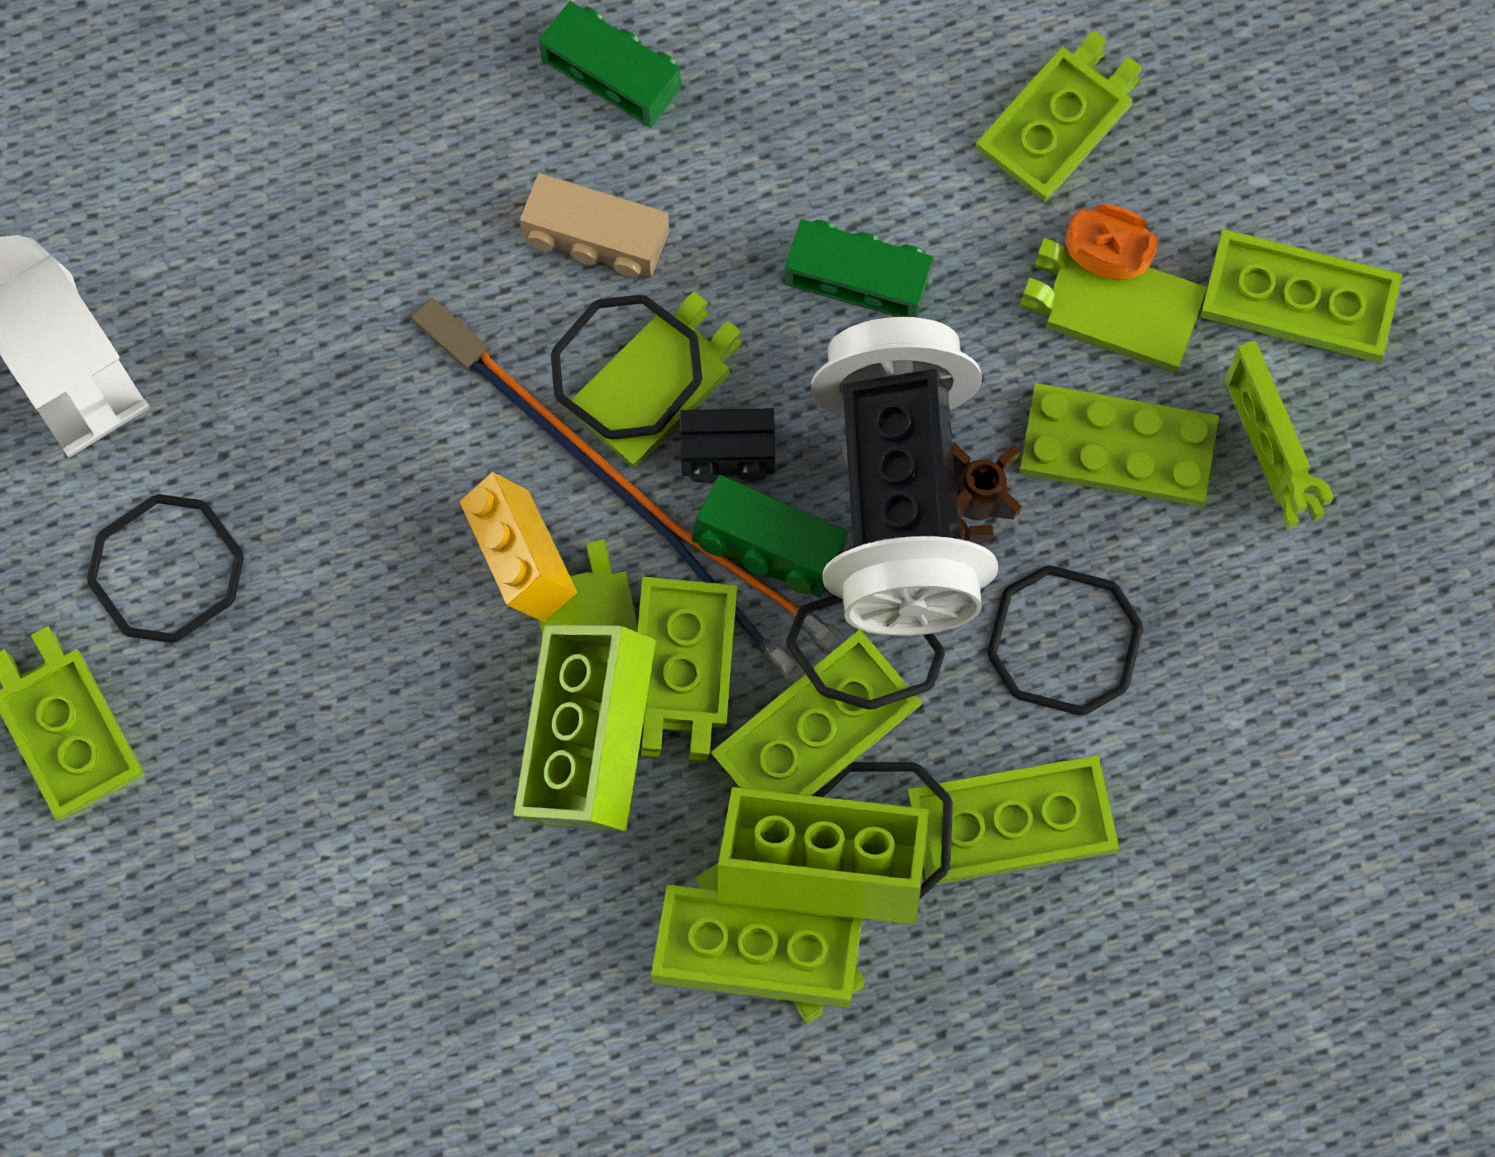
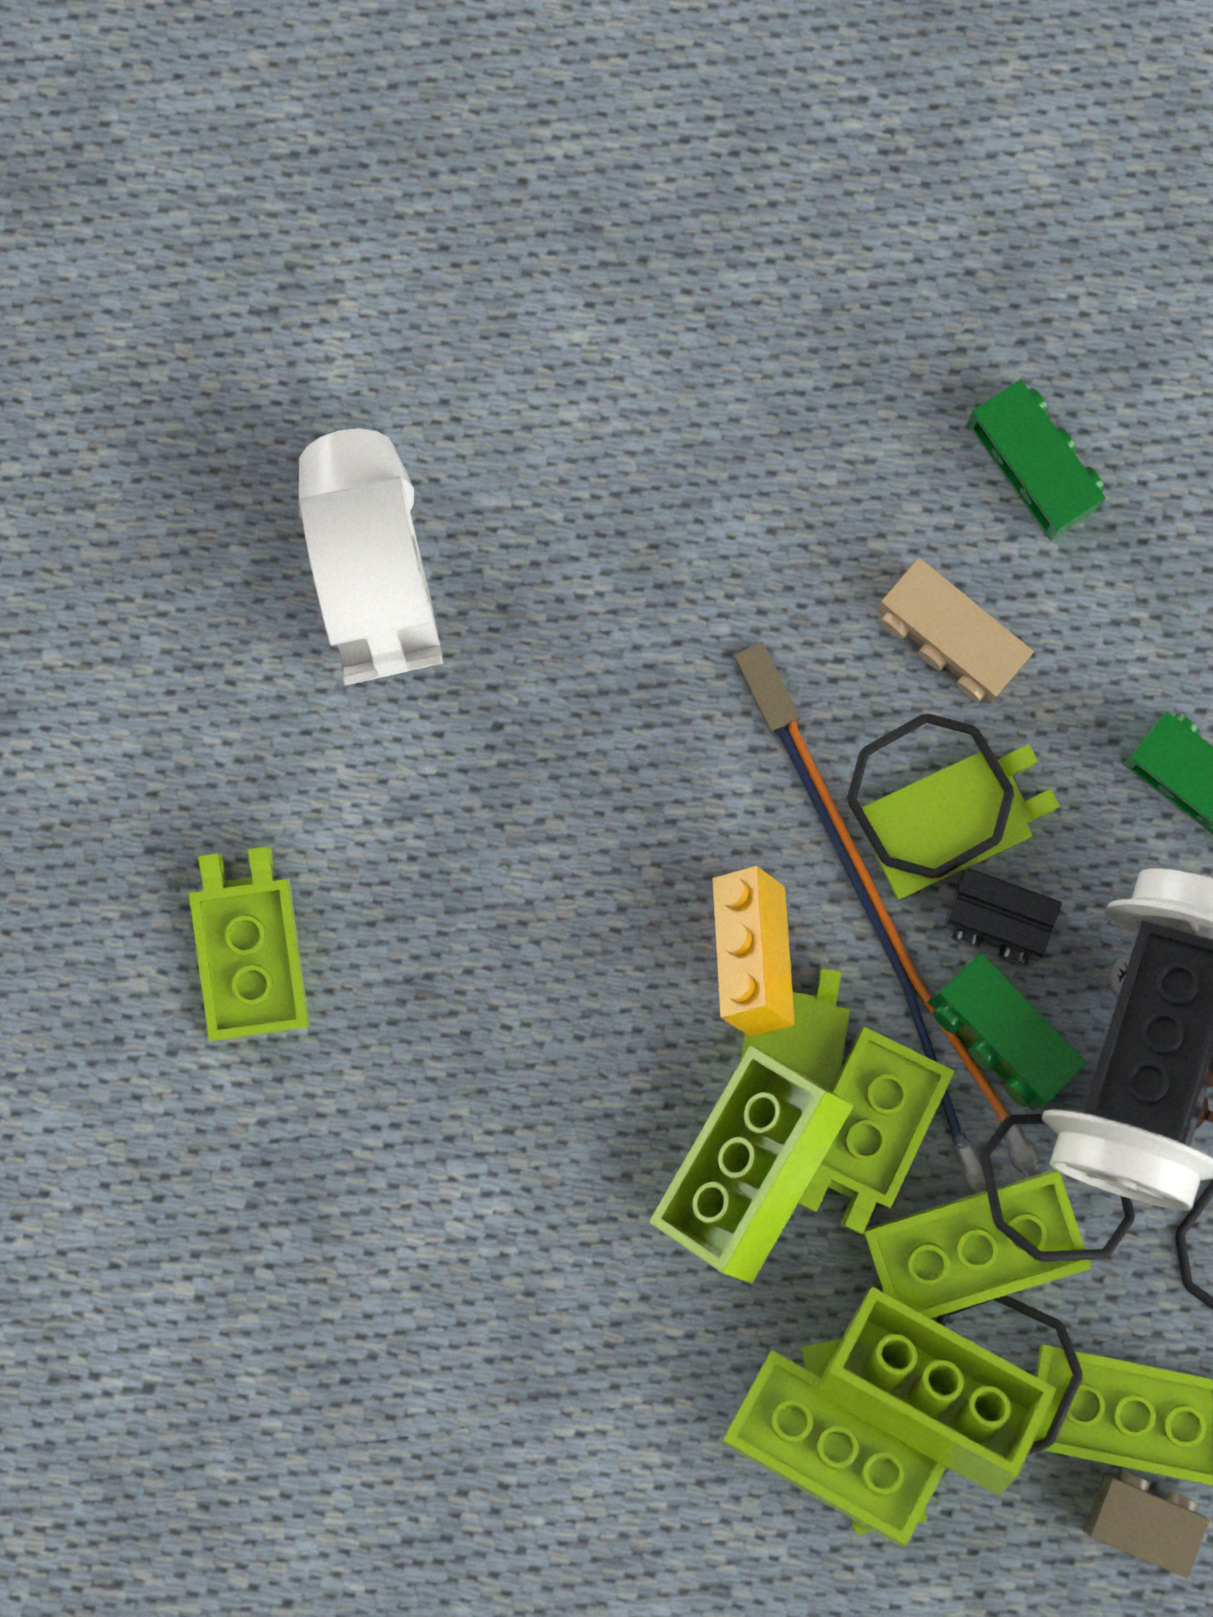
camera: 25 degrees right, 10 degrees up
(198, 621) = (420, 888): black piece -> none
(1061, 907) = (1146, 1525): none -> dark tan brick

